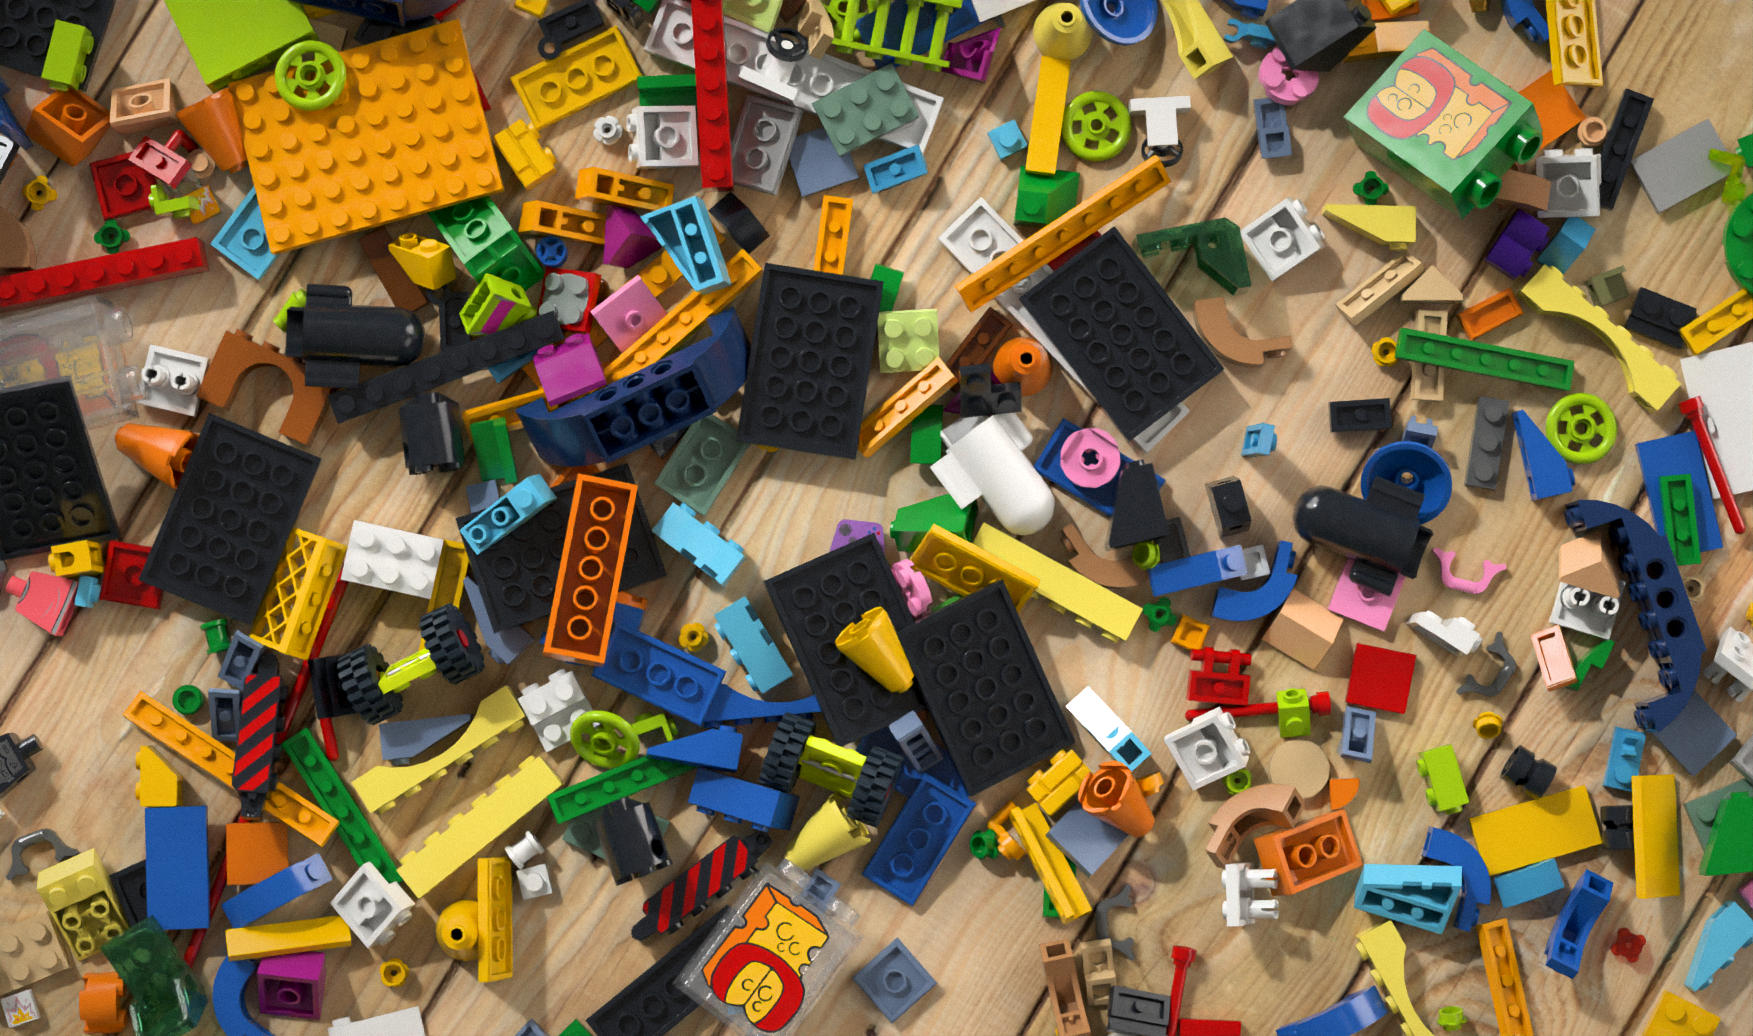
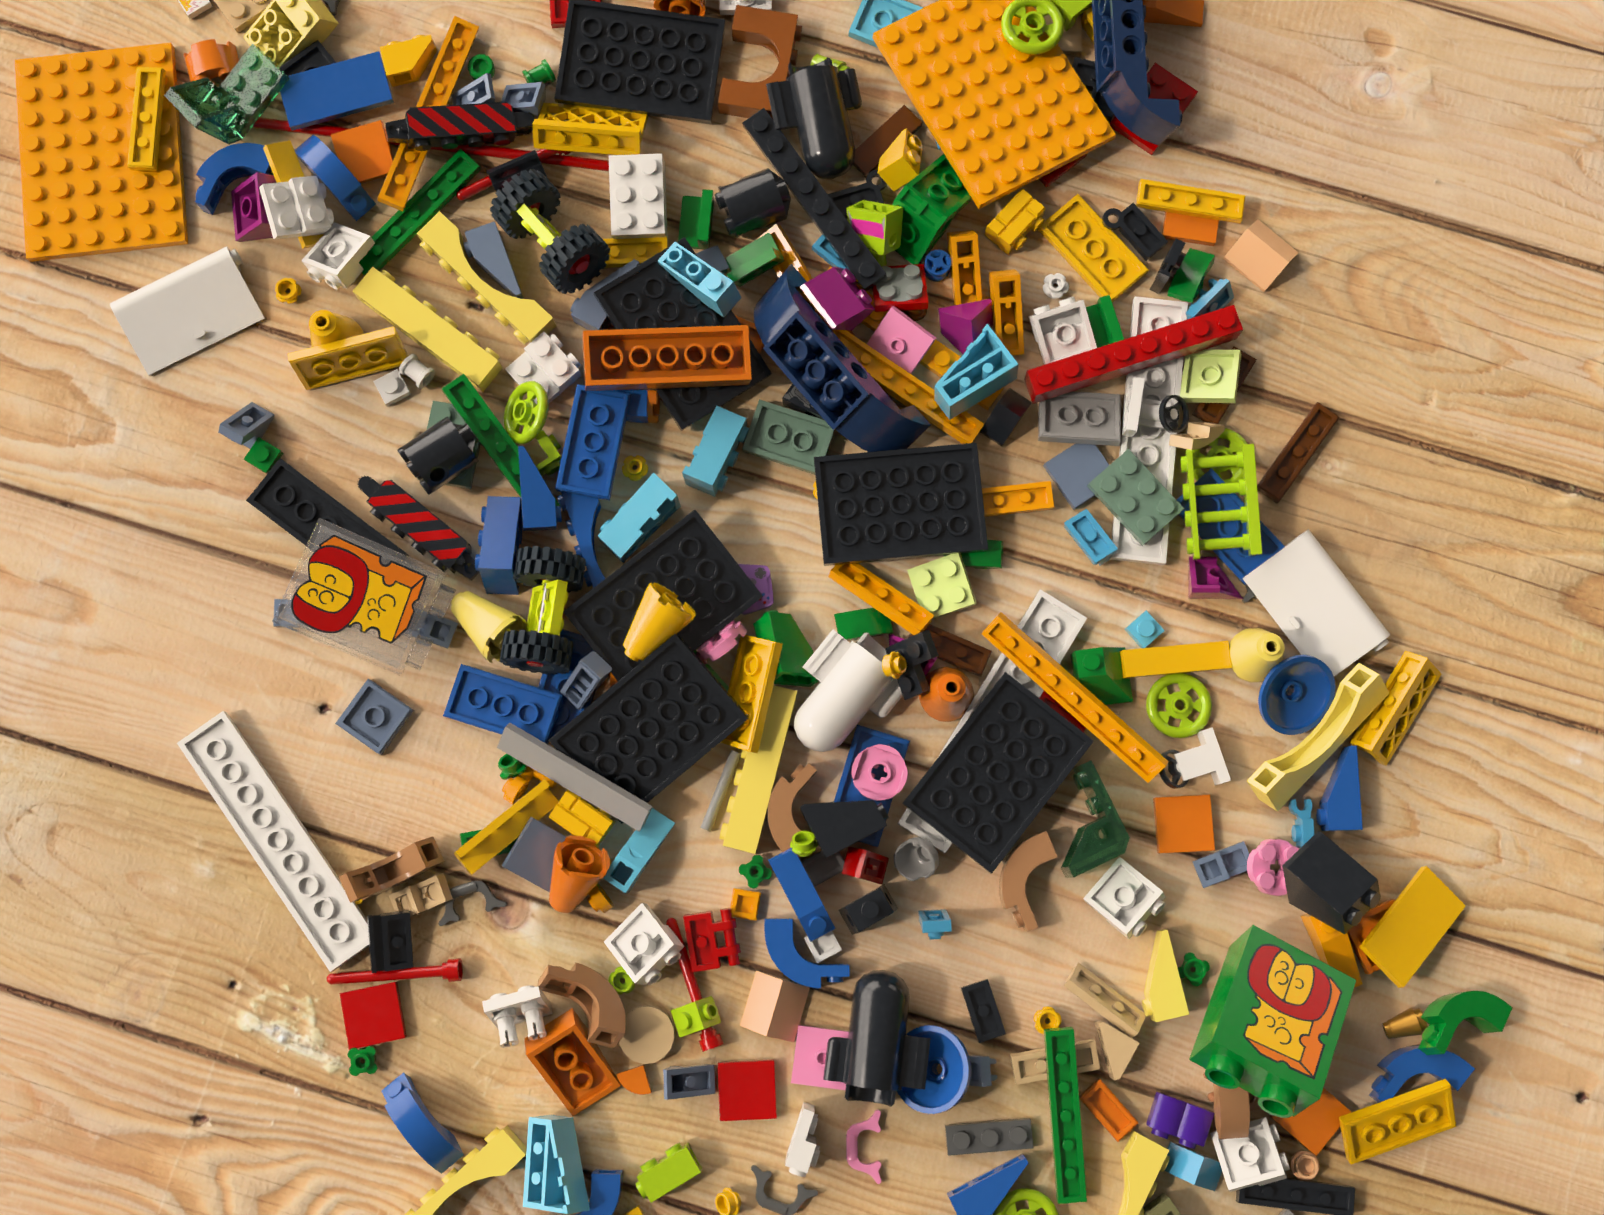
camera: 75 degrees right, 5 degrees down
(308, 938) = (296, 207): none -> white plate
(431, 502) = (697, 219): none -> green panel
(985, 412) = (894, 665): none -> yellow plate
(1015, 779) = (574, 777): none -> light grey tile
(1065, 630) = (720, 790): none -> light grey bar
(1182, 498) = (865, 865): none -> red slope
(1189, 442) = (916, 859): none -> light grey hair
(1220, 156) = (1183, 824): none -> orange tile

